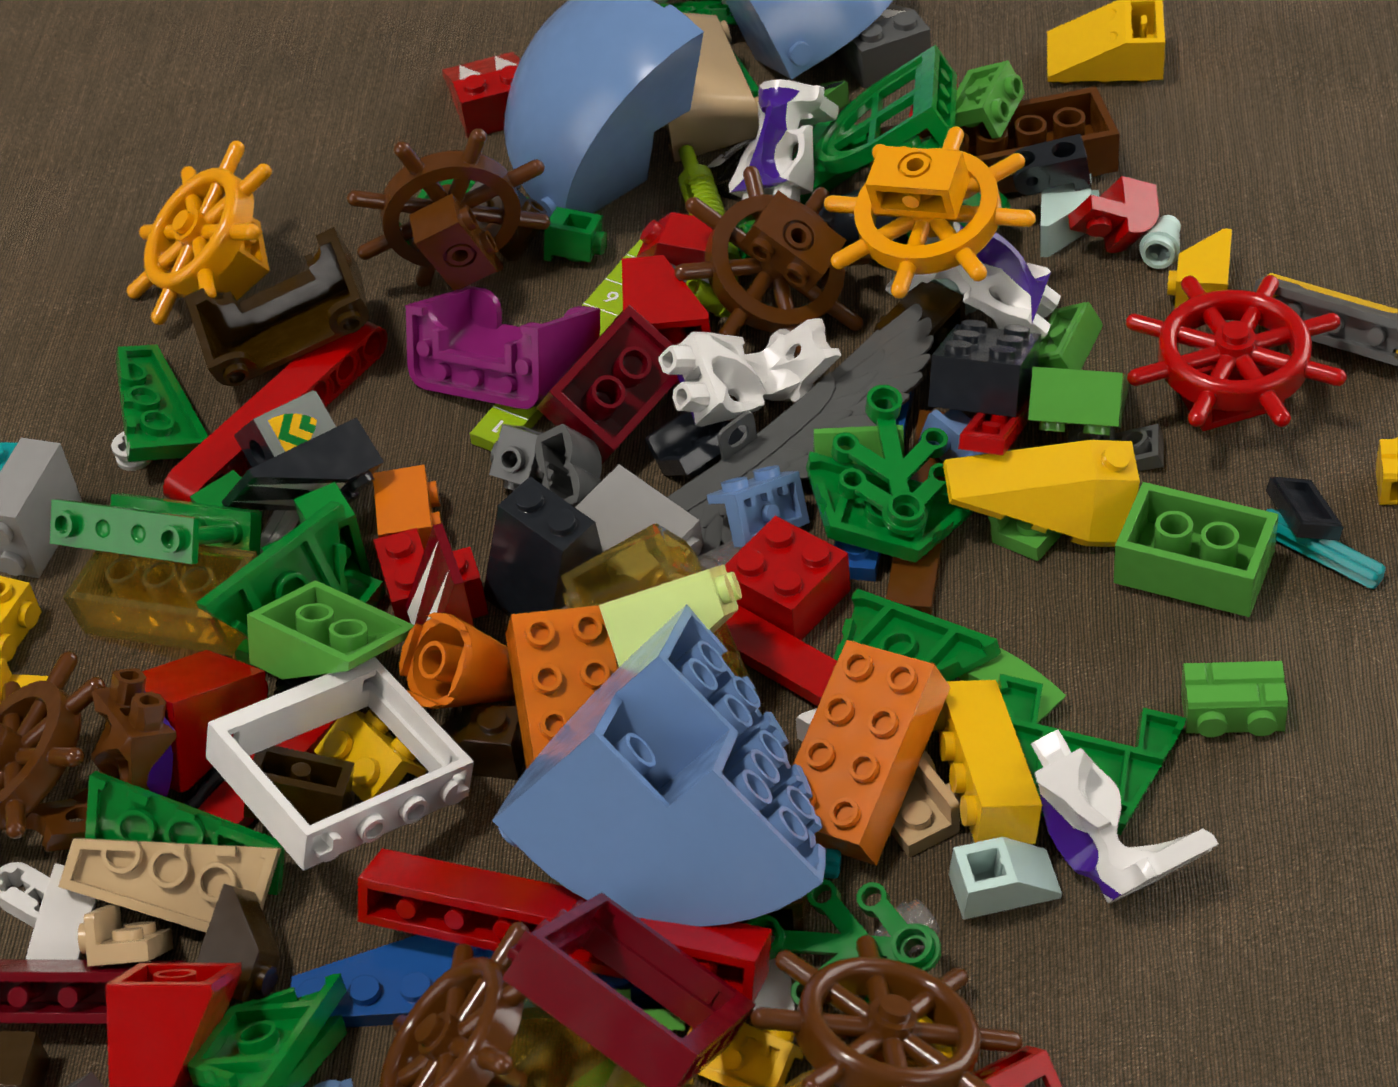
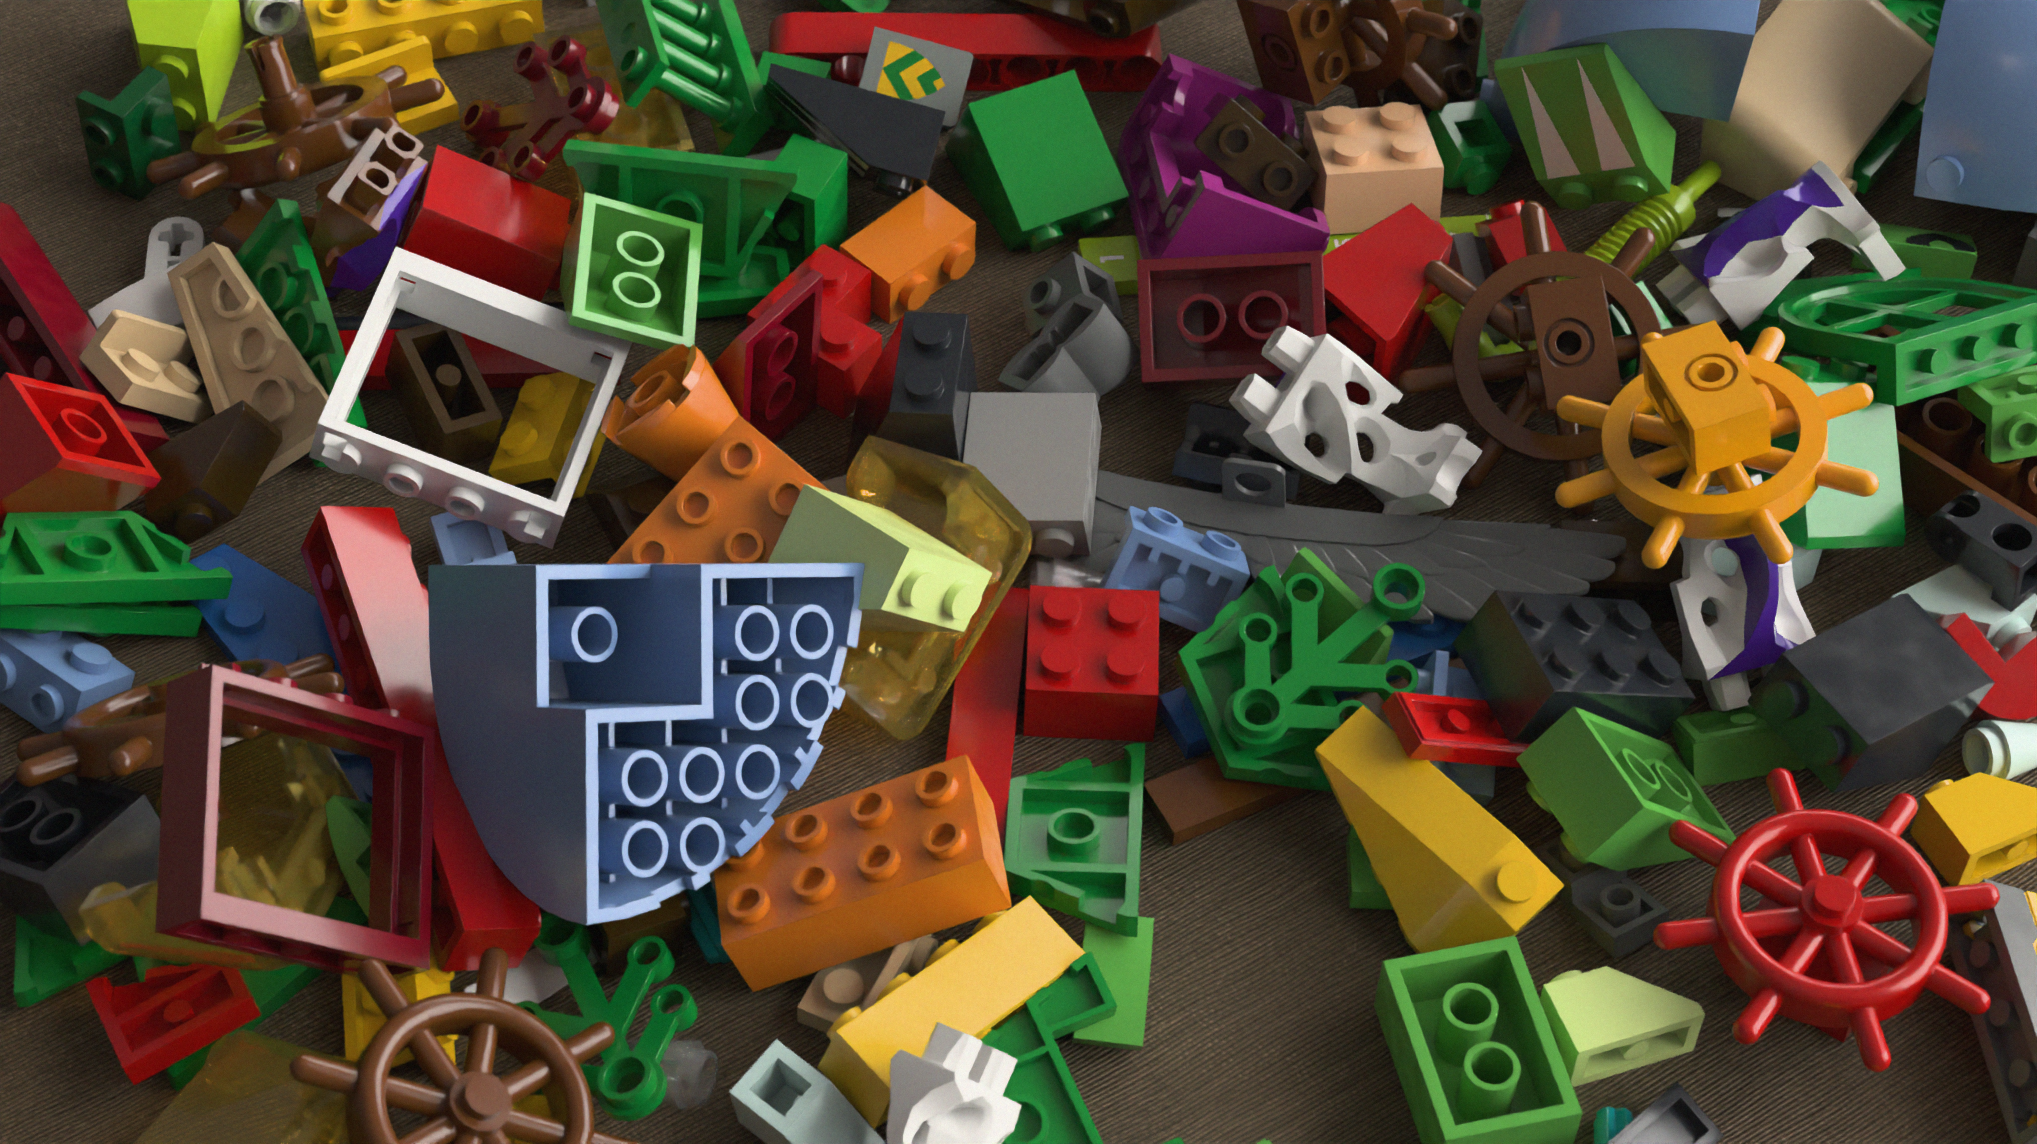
camera: 45 degrees right, 5 degrees up
(138, 616) = (585, 109): none -> dark red plant
(411, 414) = (1038, 163): none -> green slope
(430, 839) = (469, 542): none -> light blue bracket
(499, 311) = (1252, 155): none -> dark brown bracket
(554, 276) = (1371, 164): none -> light nougat brick
(636, 165) = (1587, 126): none -> bright green slope
(1104, 261) = (1872, 696): none -> black slope
(1213, 472) = (1616, 1022): none -> yellowish green slope

